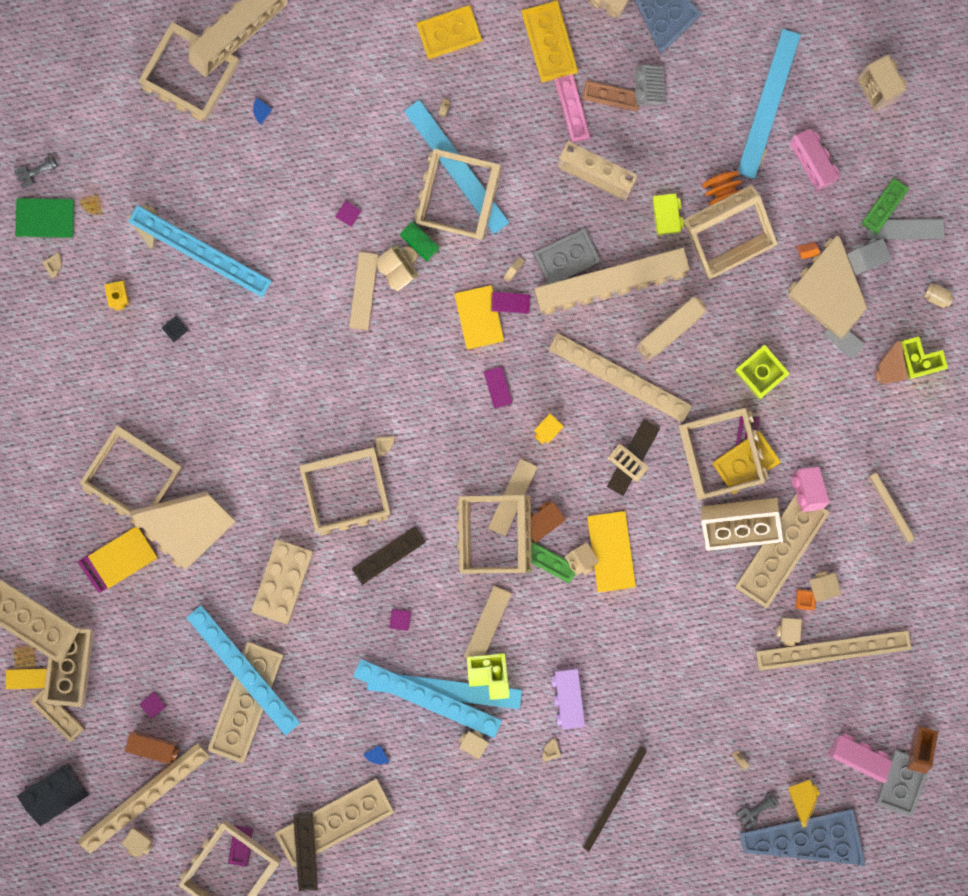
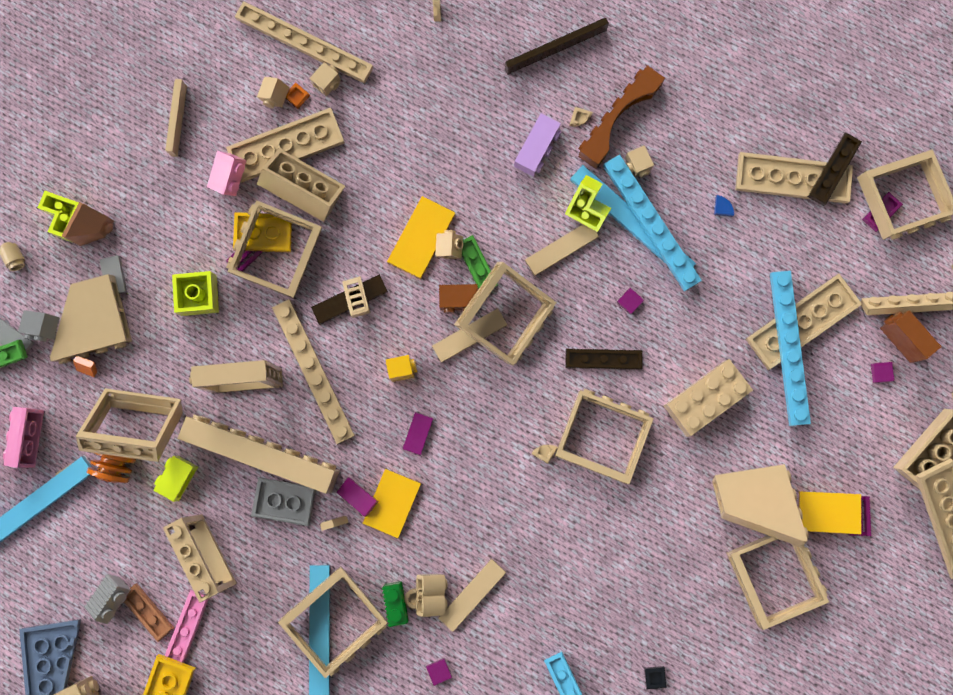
camera: 145 degrees left, 5 degrees down
(514, 813) = (644, 88): none -> dark orange arch

